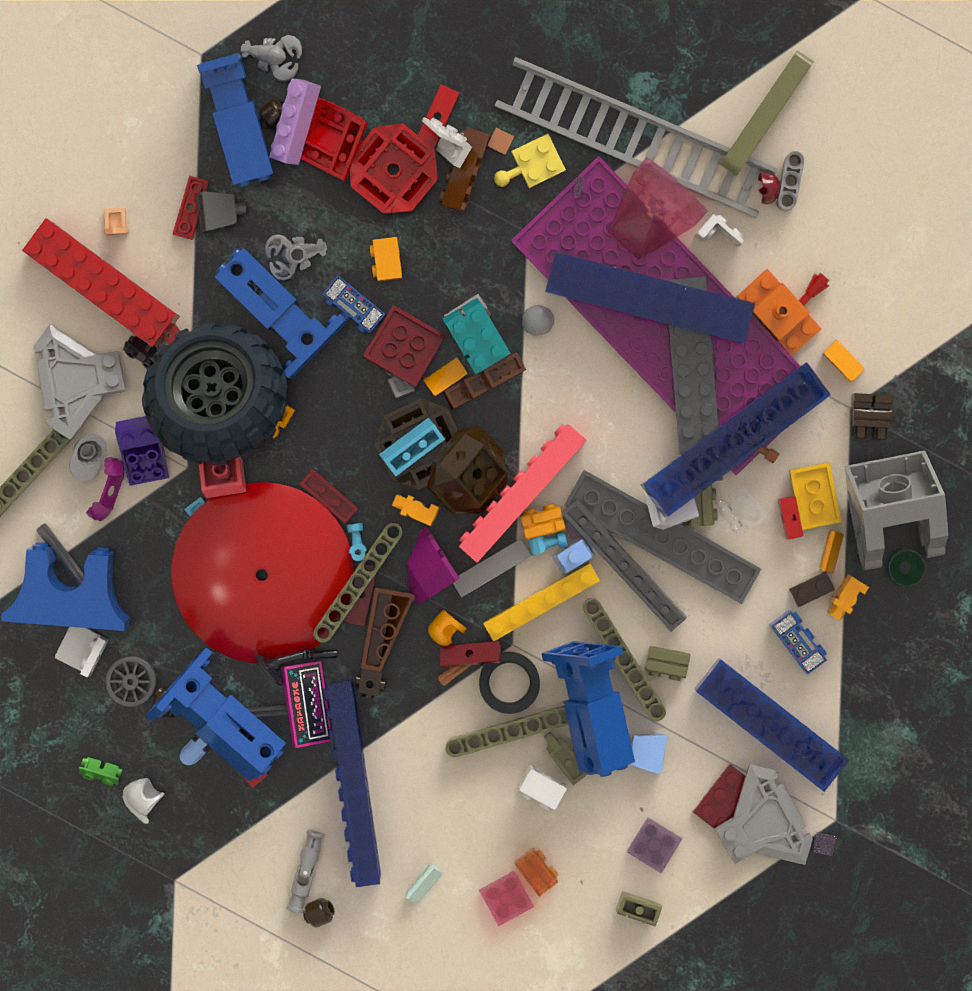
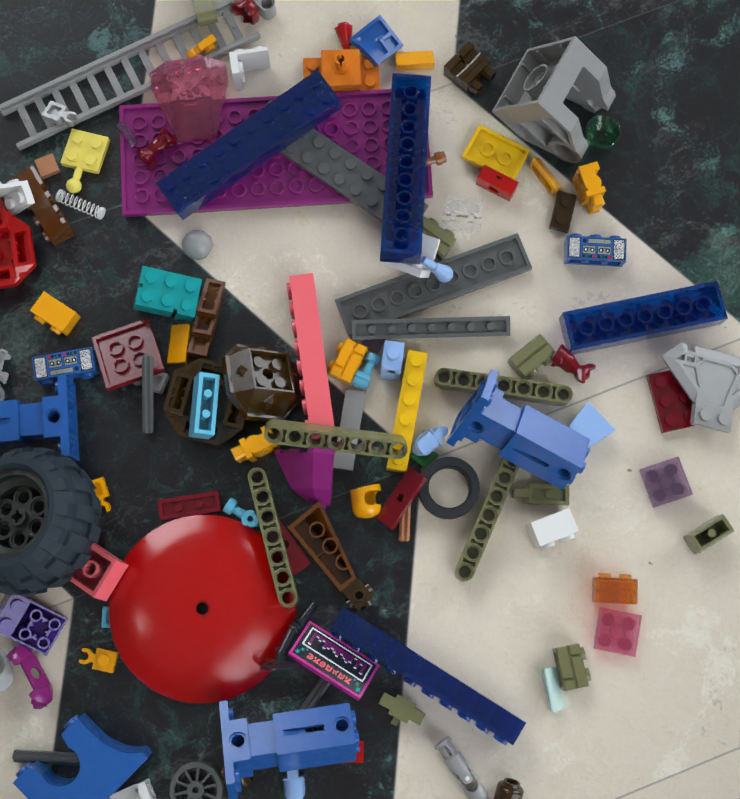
camera: 50 degrees left, 10 degrees down
(162, 530) = (102, 660): none -> light orange plate
(314, 784) = (401, 709): none -> olive piece
(386, 390) = (147, 394): none -> dark grey axle
(450, 884) = (571, 667): none -> olive brick
(471, 561) = (327, 432): none -> olive beam
(485, 175) = (100, 211): none -> white piece
(517, 643) = (424, 461): none -> green tile
(533, 638) = (428, 441): none -> light blue arm
(548, 113) = (57, 113): none -> light grey plate
(593, 222) = (160, 144): none -> dark red animal
(675, 537) = (442, 272): none -> light blue piece
(686, 693) = (568, 363): none -> dark red animal
(708, 182) = (206, 45): none -> light orange plate
(831, 318) = (376, 41): none -> blue plate

